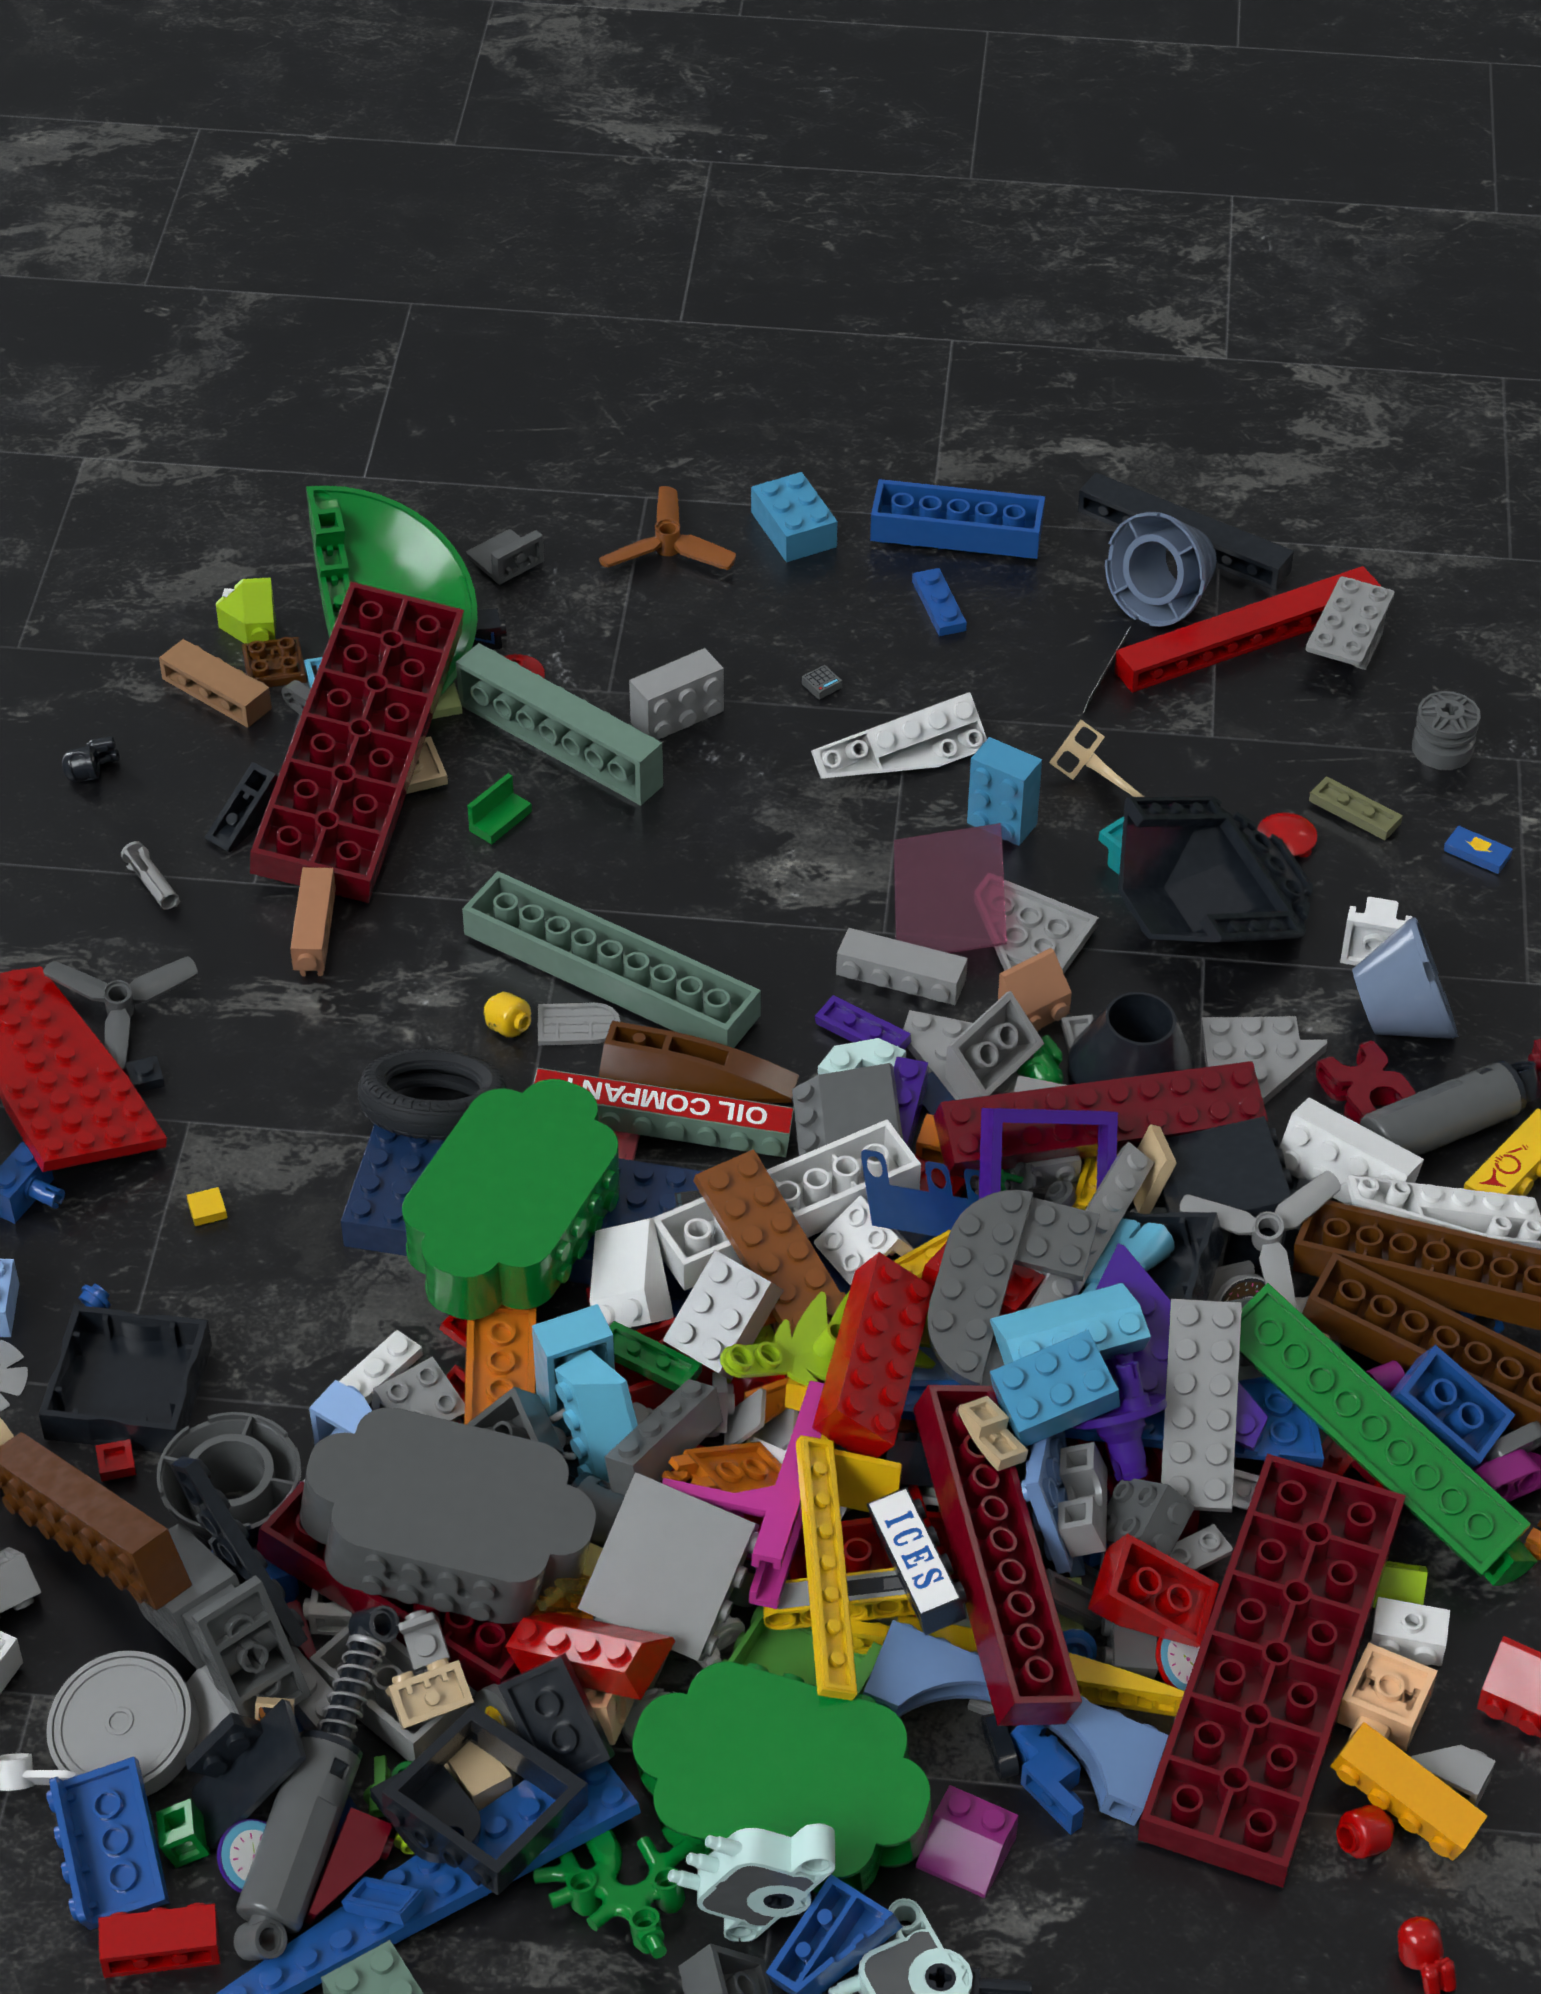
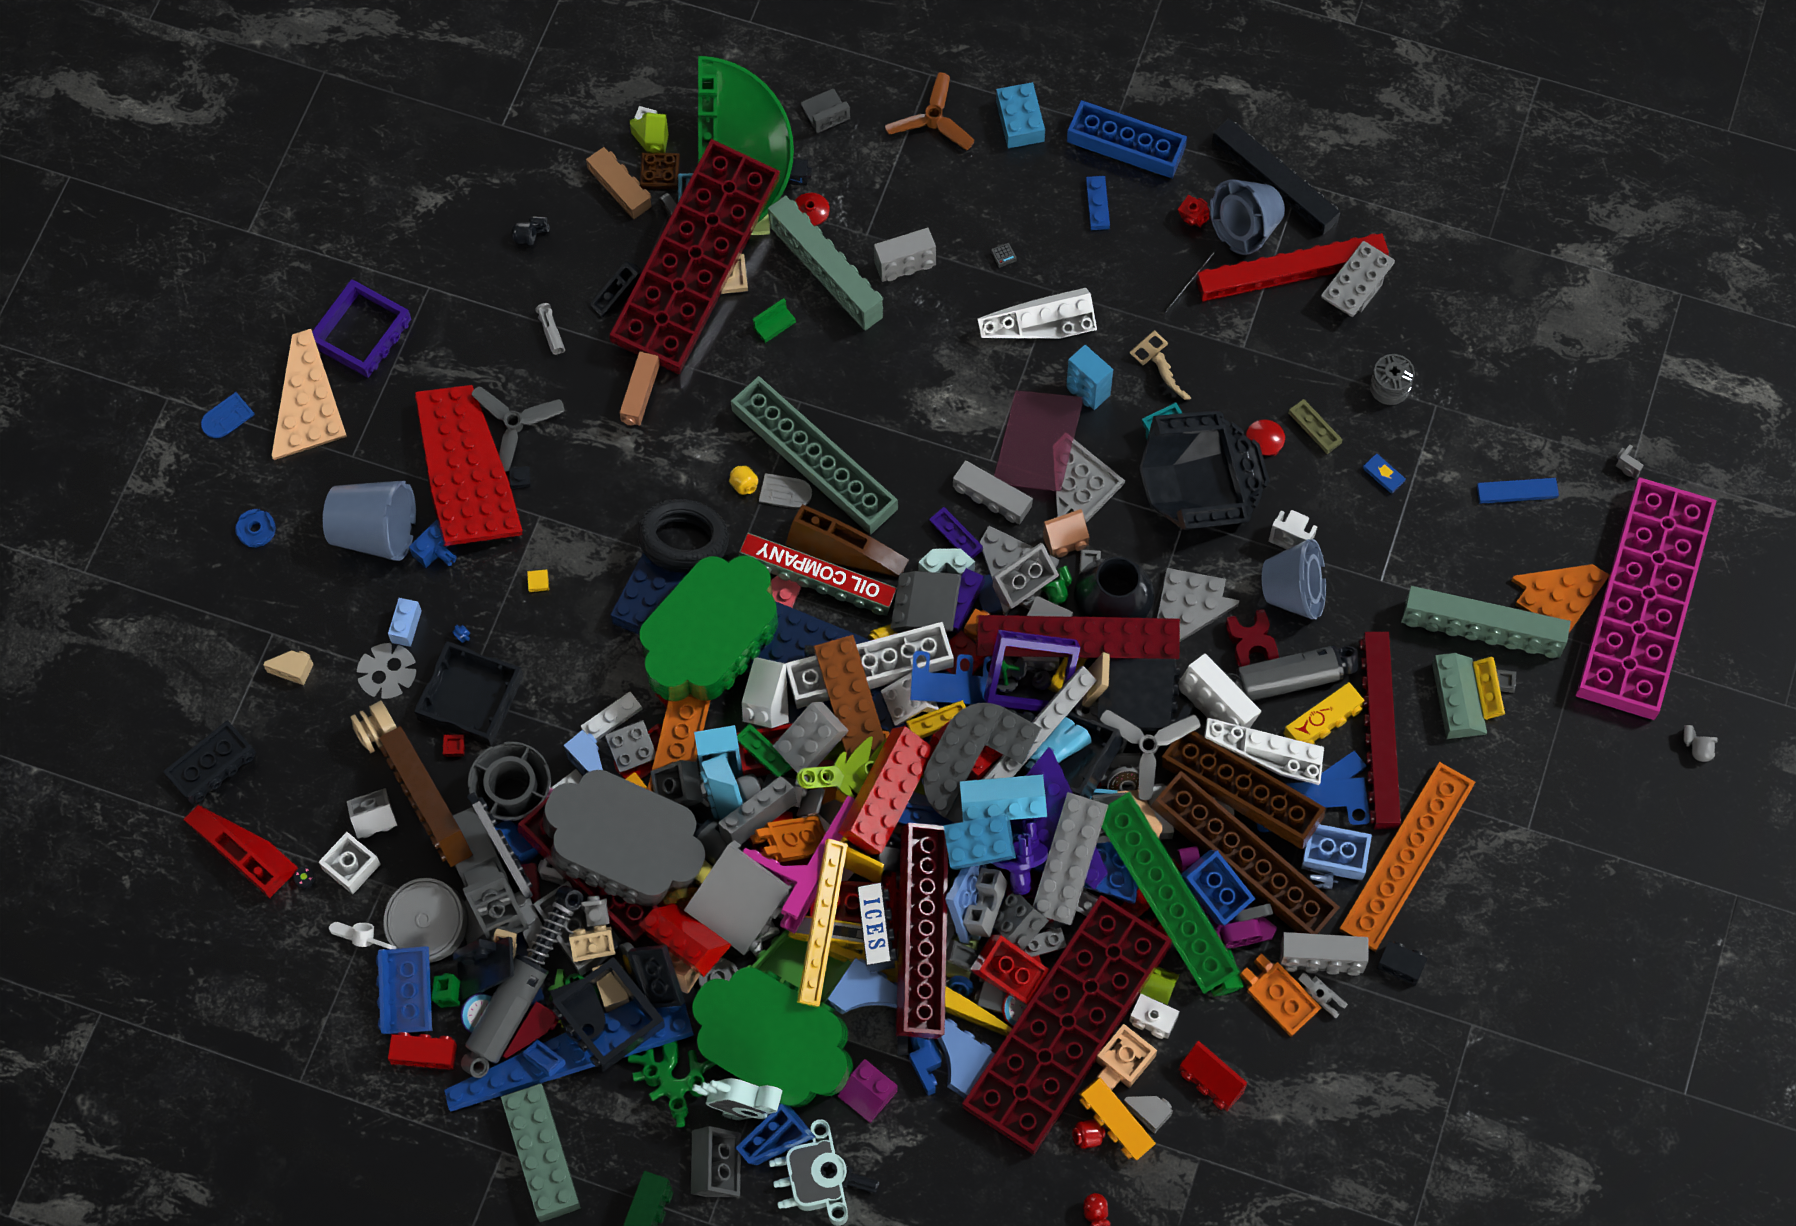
camera: 15 degrees right, 20 degrees up
(989, 1431) = (937, 860): tan slope -> none
(1084, 584) = (1194, 211): none -> red brick

